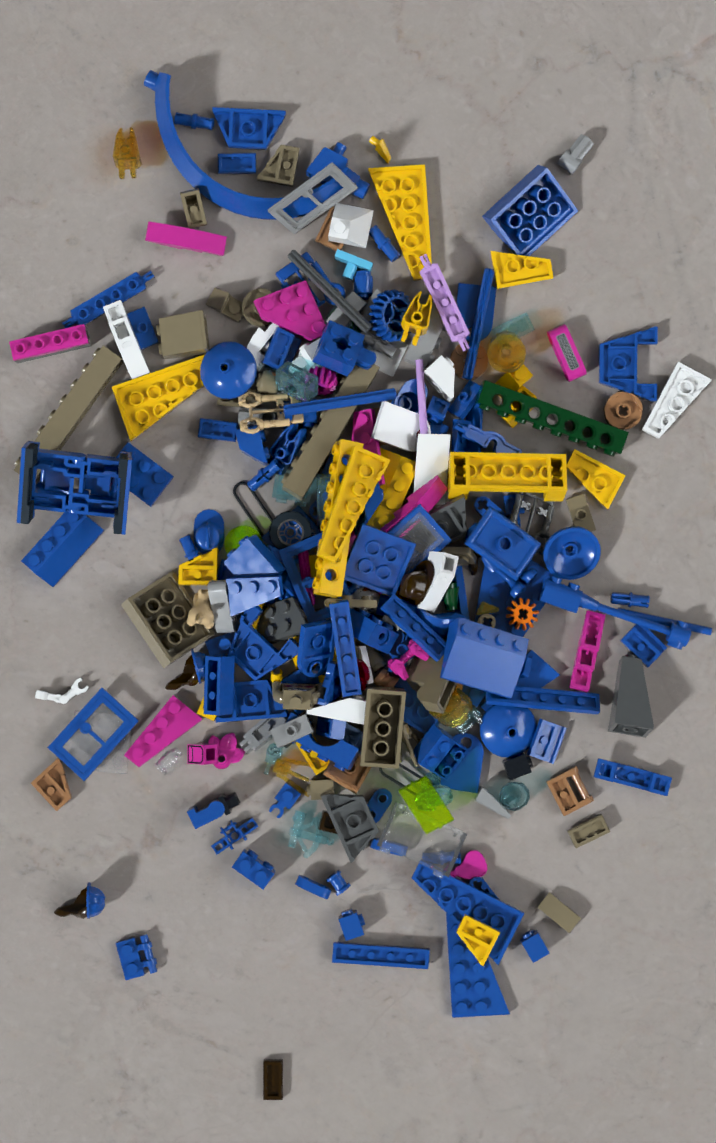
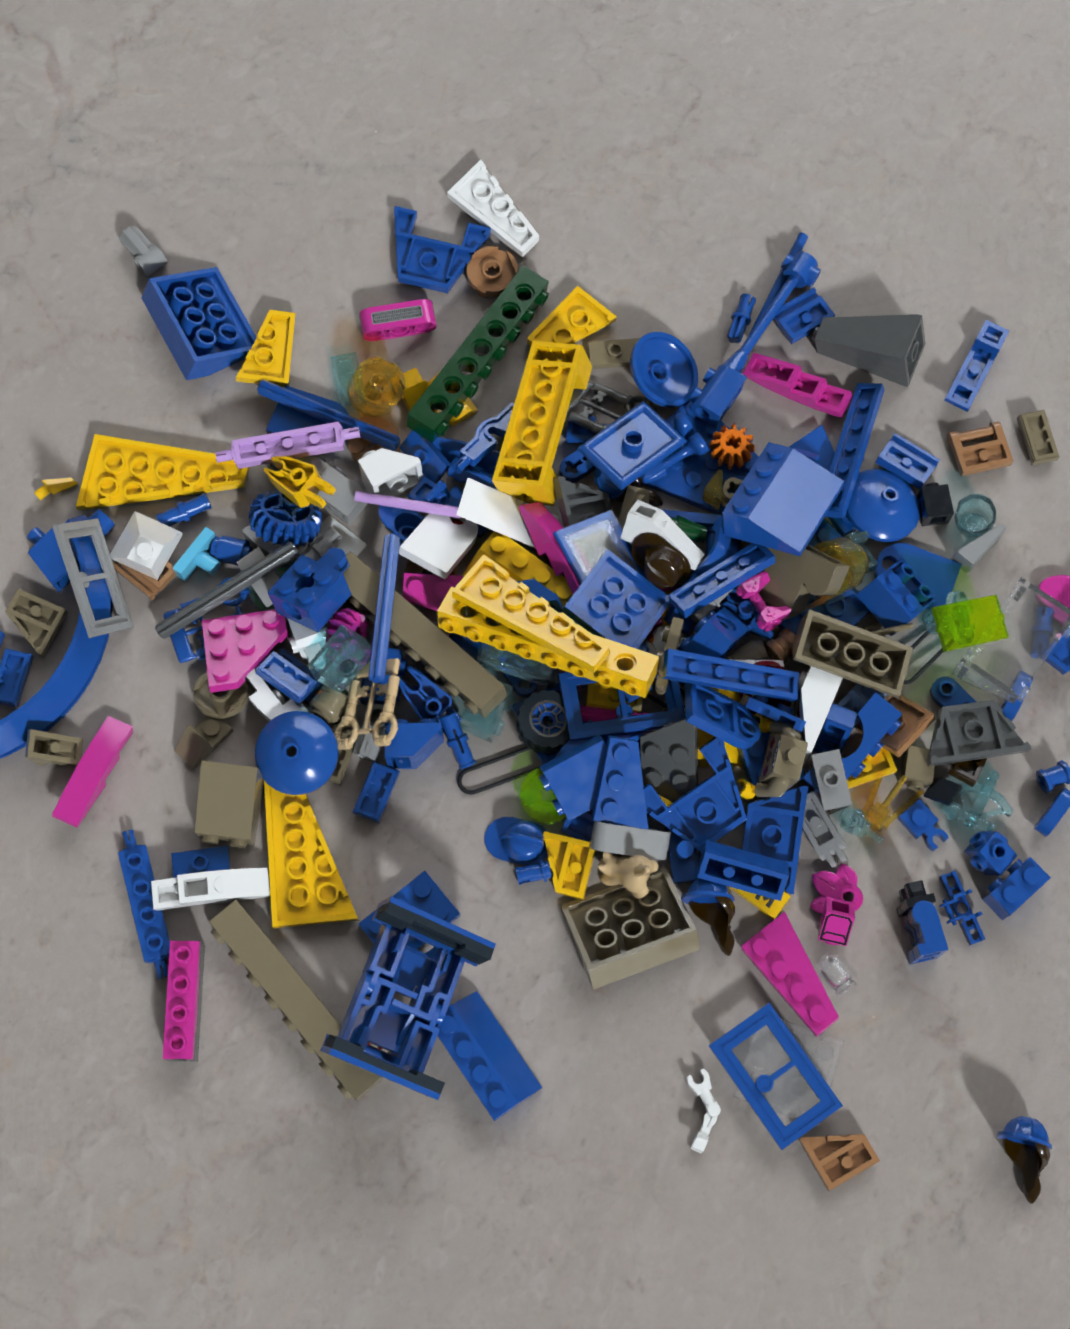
camera: 80 degrees left, 15 degrees down
(273, 847) = (990, 852): none -> blue brick
(309, 808) = (942, 791): none -> black slope

